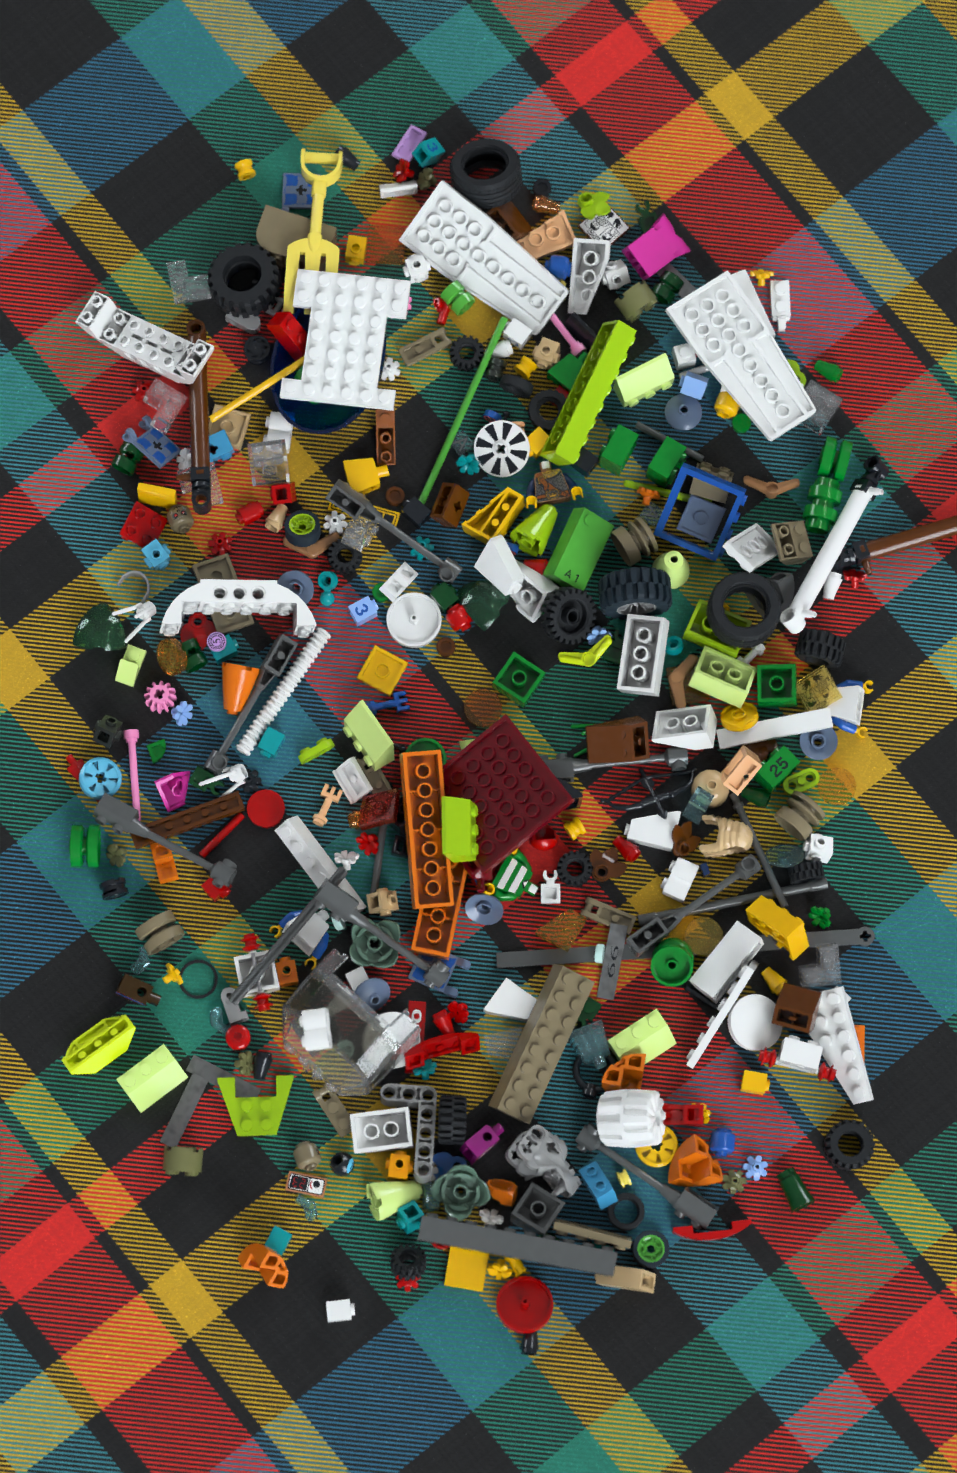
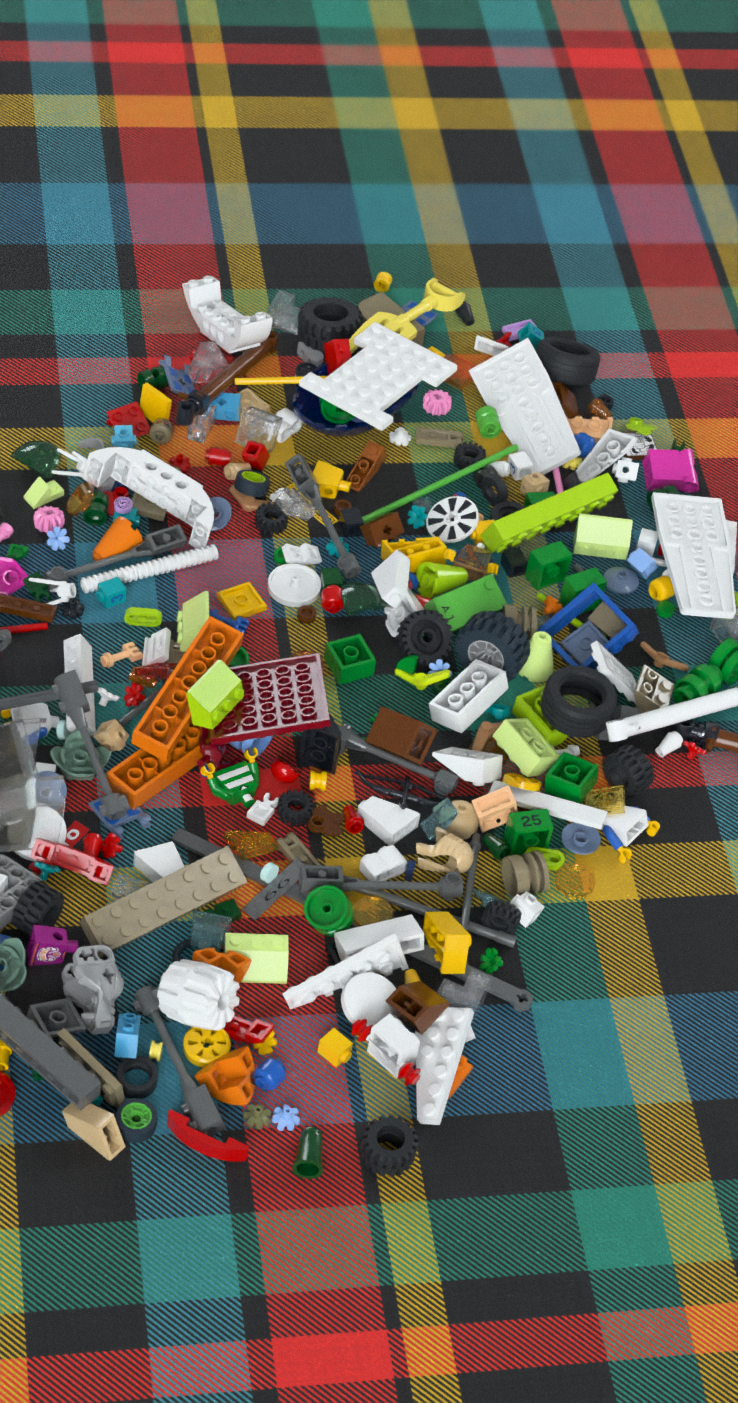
camera: 30 degrees right, 30 degrees down
(265, 808) = (68, 627): red tile -> none
(327, 598) = (244, 525): teal plate -> none
(363, 610) = (257, 555): light blue brick -> none
(416, 274) = (471, 389): white brick -> none
(443, 310) = (471, 425): red arm -> none
(484, 909) = (187, 786): sand blue dish -> none
(503, 1191) = (36, 993): orange rock -> none
(525, 367) = (513, 486): yellow wheel -> none
(570, 651) = (408, 664): none -> green tile
(636, 300) = (632, 490): olive brick -> none
(684, 840) = (409, 836): reddish brown plate -> none

